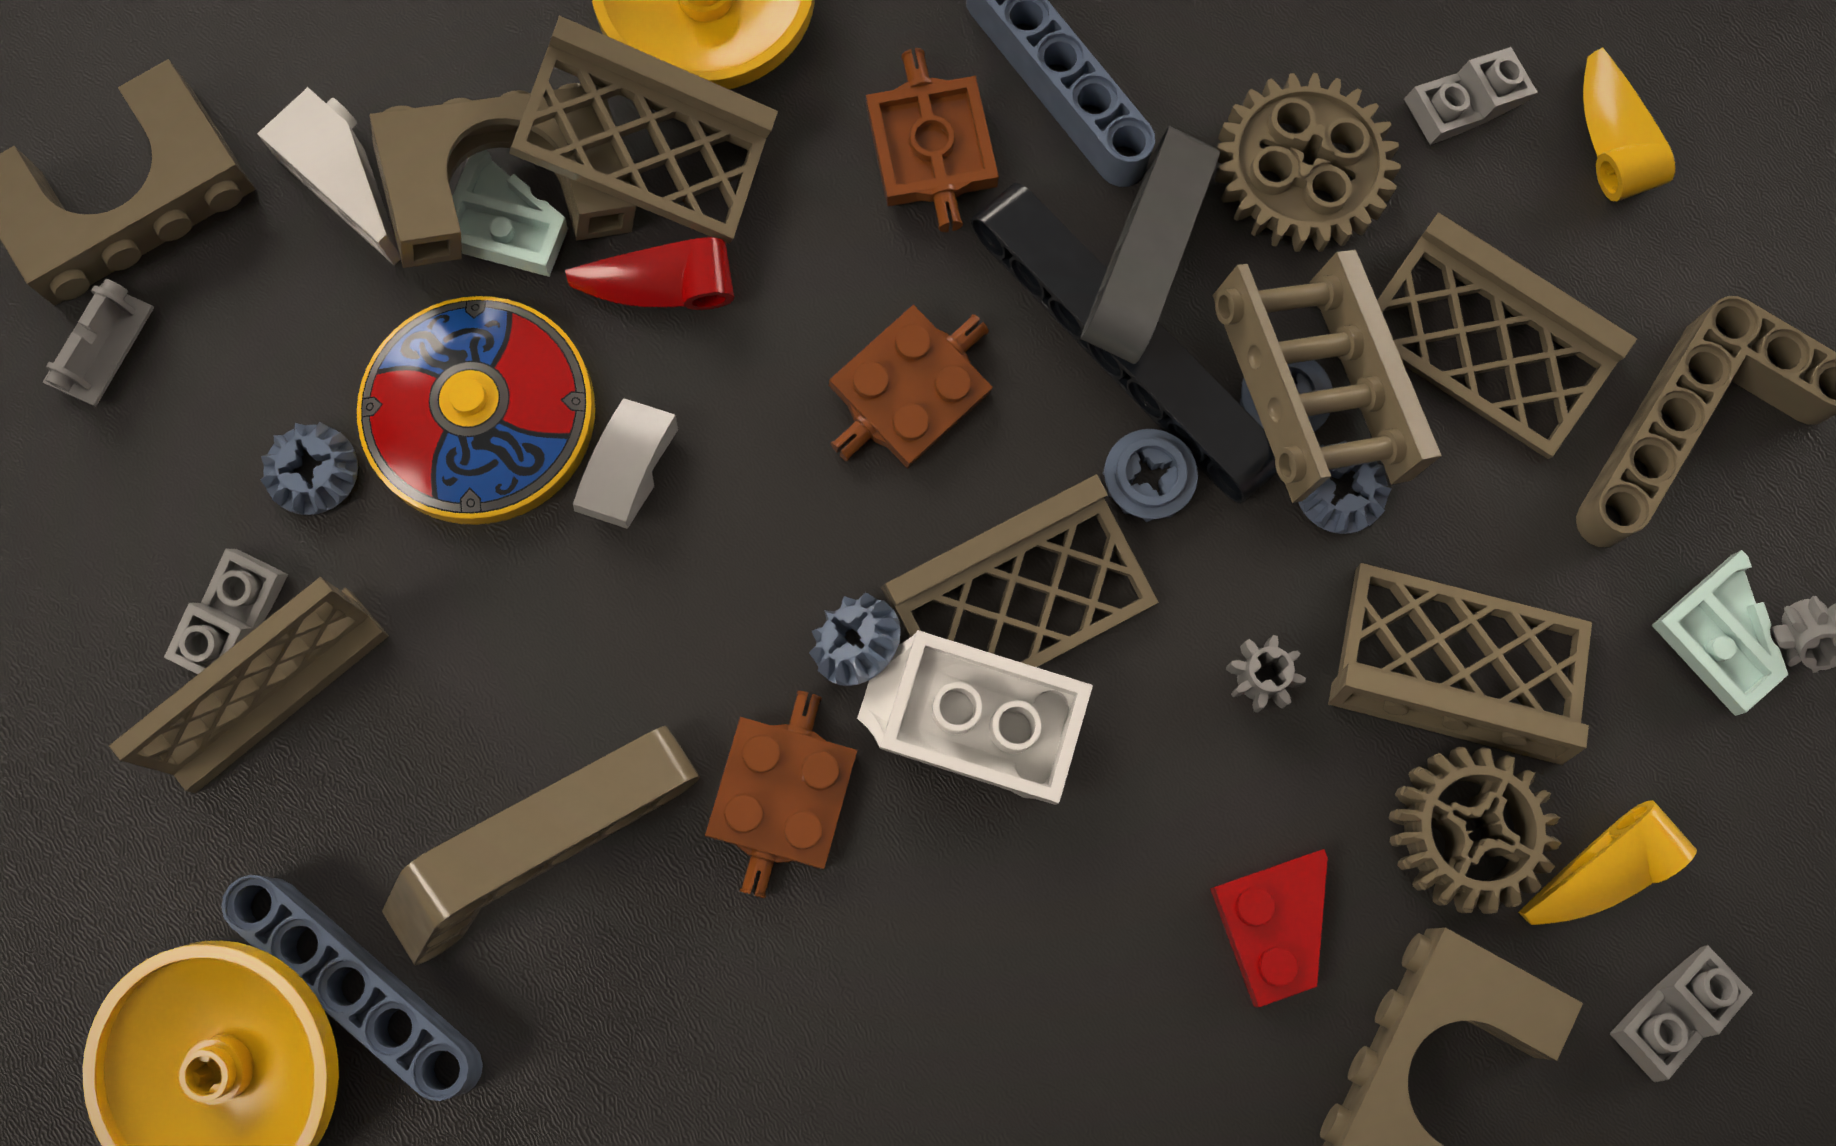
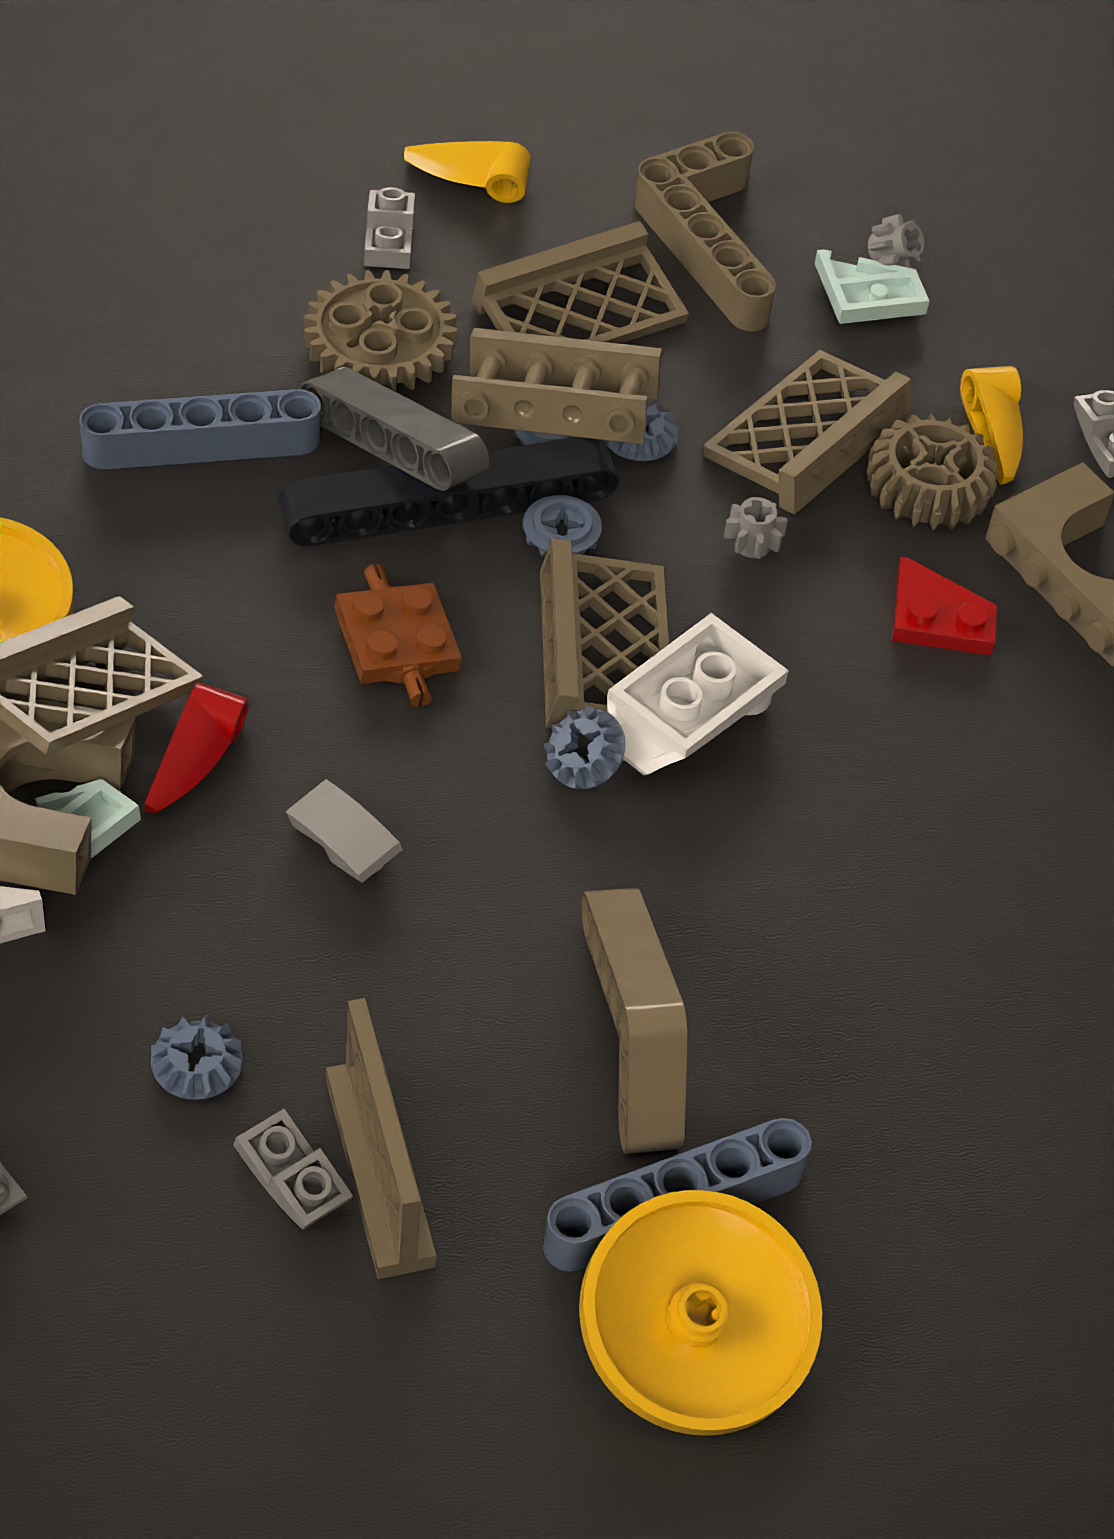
camera: 65 degrees left, 25 degrees down
(476, 410) = (222, 921): dish -> none
(781, 793) = (677, 852): dark orange plate -> none
(931, 140) = (203, 529): dark orange plate -> none

